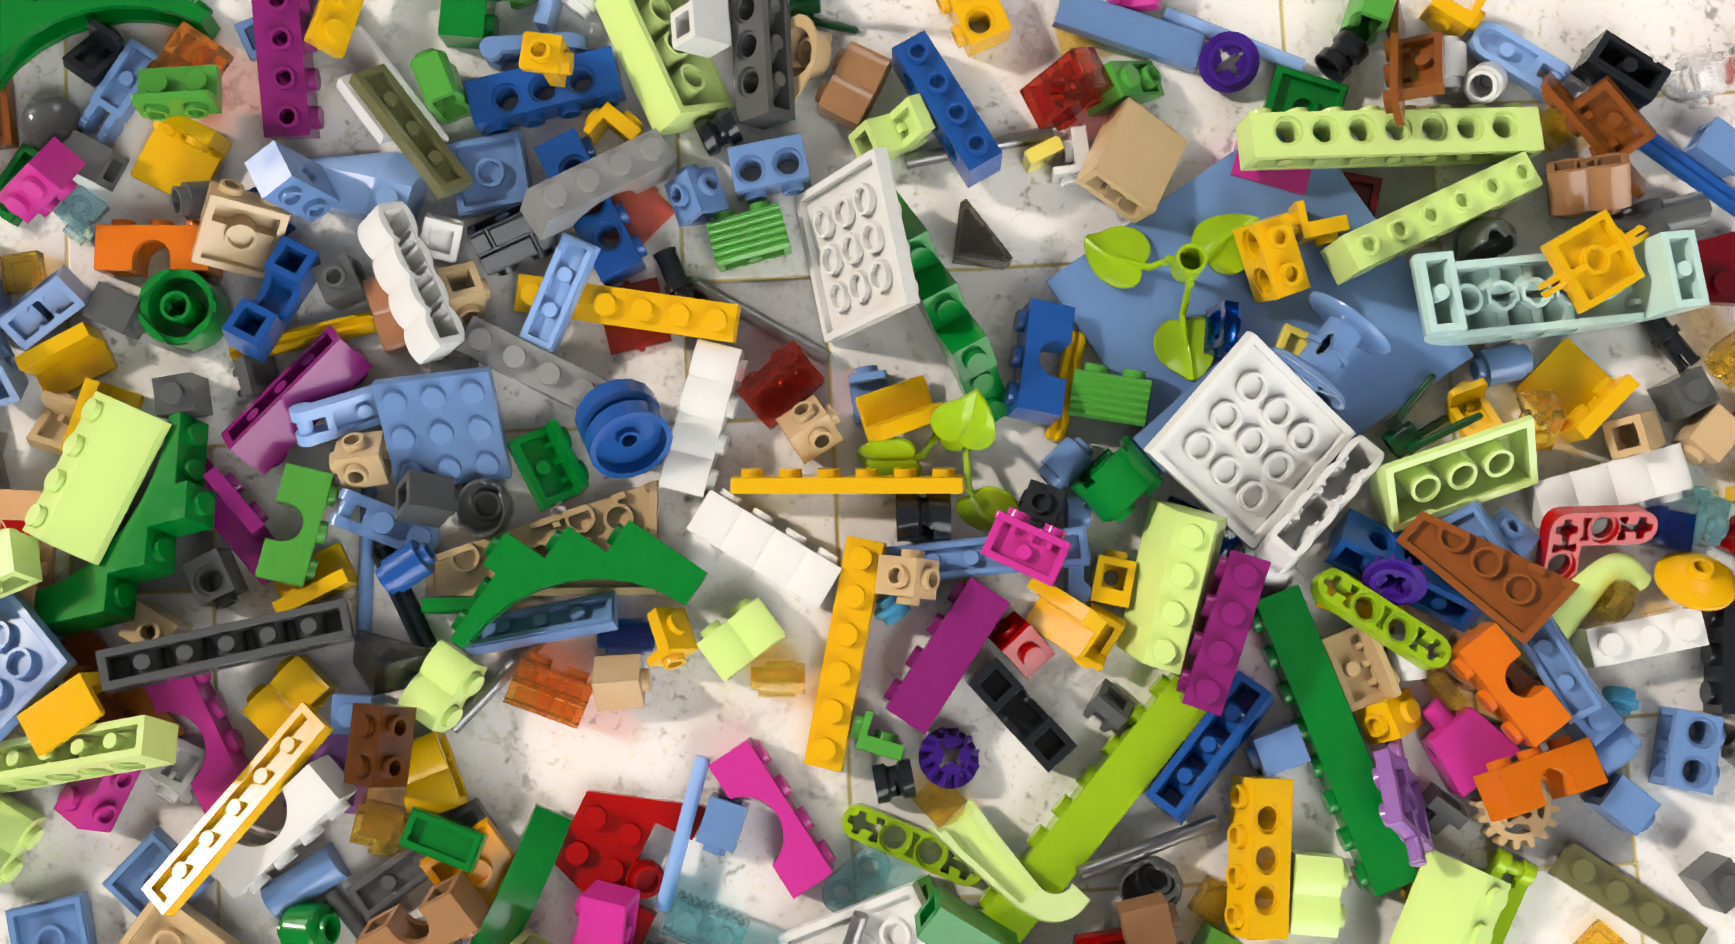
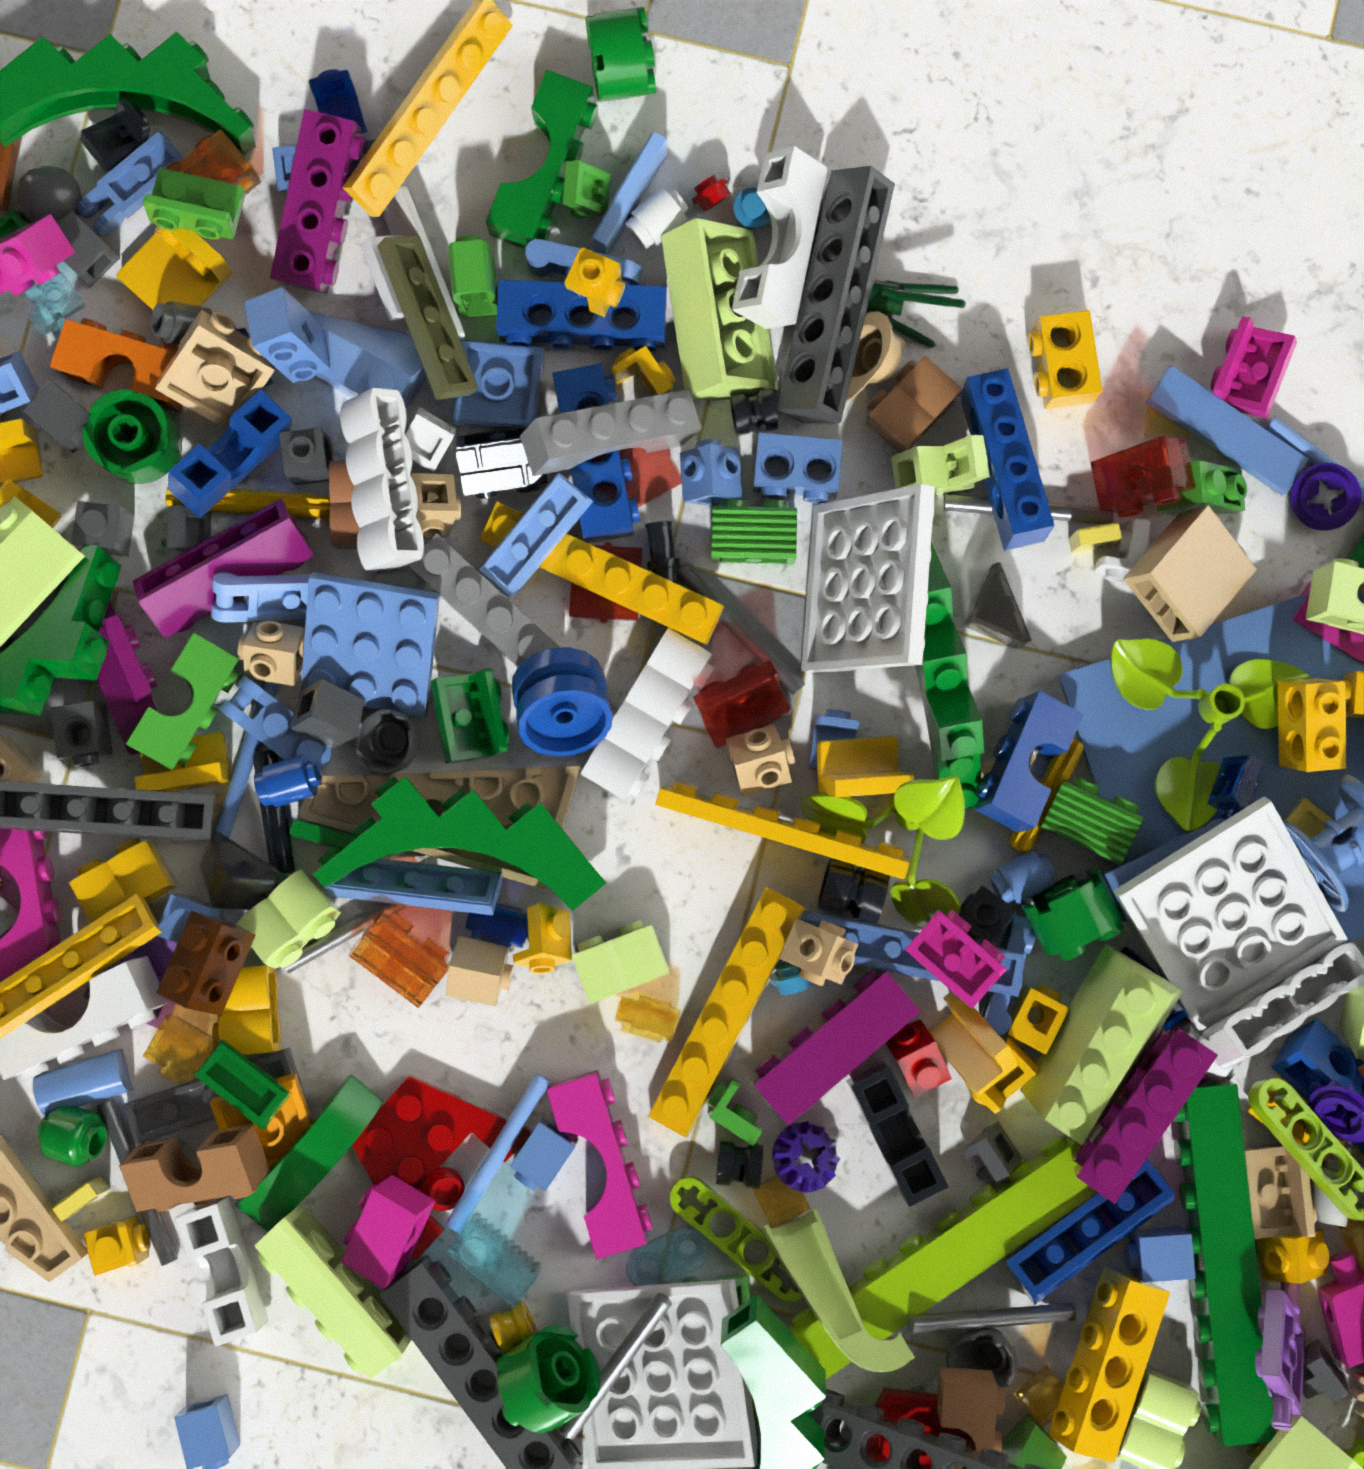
camera: 15 degrees right, 0 degrees up
(765, 548) = (674, 874): white brick -> none

